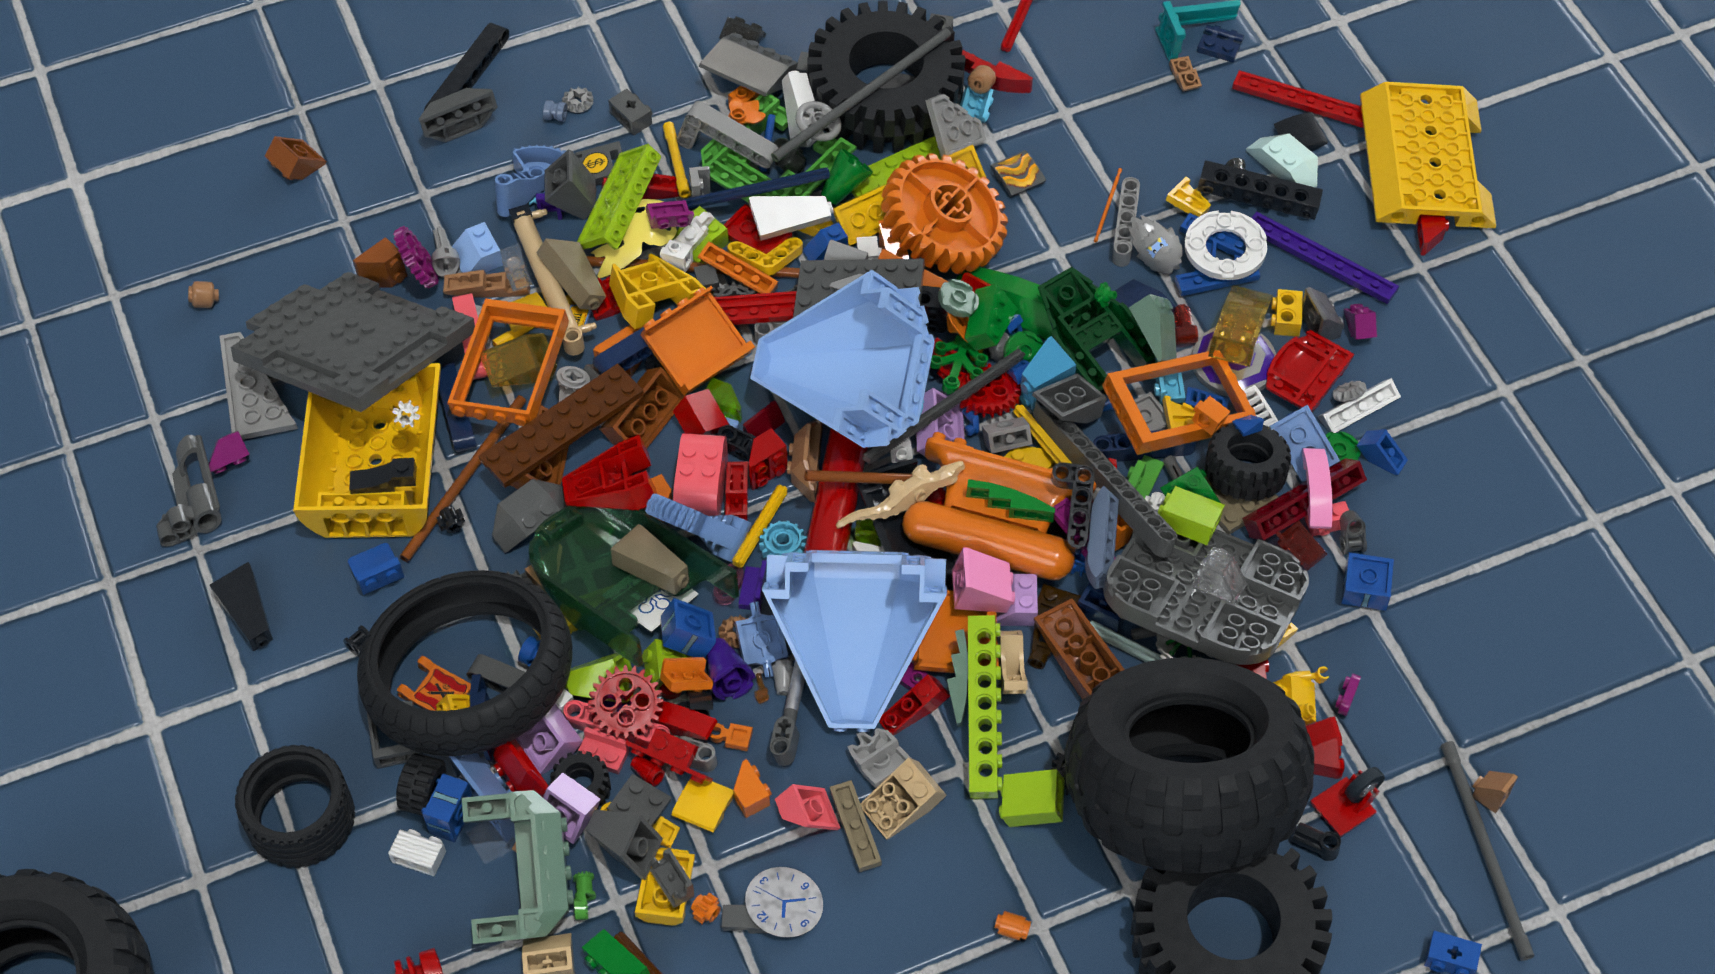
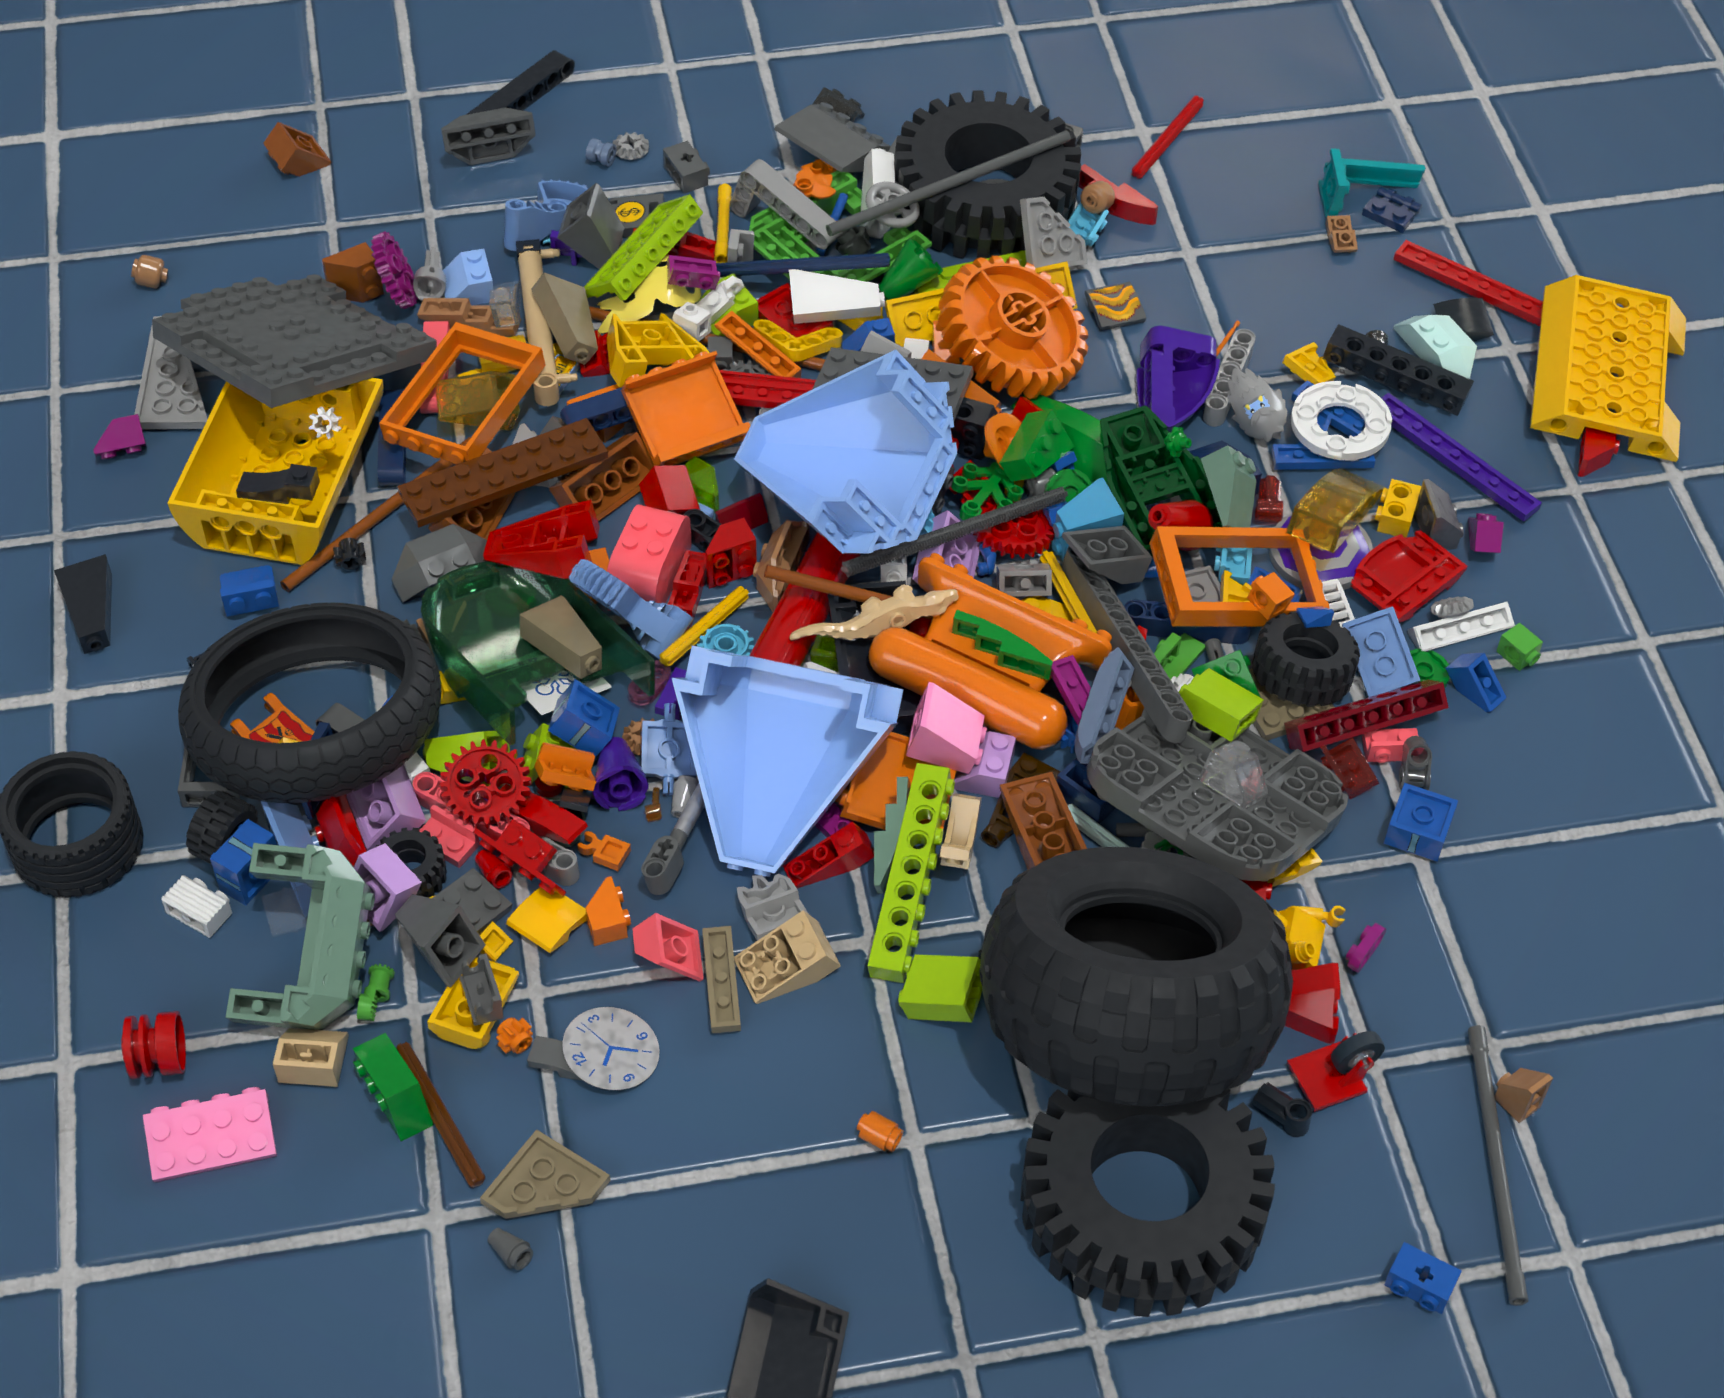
camera: 10 degrees right, 5 degrees down
(196, 504) = (71, 483): dark grey panel -> none
(578, 375) = (524, 421): light grey gear -> none
(958, 298) = (1002, 416): sand green tile -> none
(1076, 508) = (1080, 667): black beam -> none
(1083, 229) = (1176, 373): none -> dark purple panel
(1122, 357) = (1180, 514): none -> red cone
(1319, 488) = (1384, 704): bright pink slope -> none
(1409, 415) = (1520, 647): none -> bright green brick

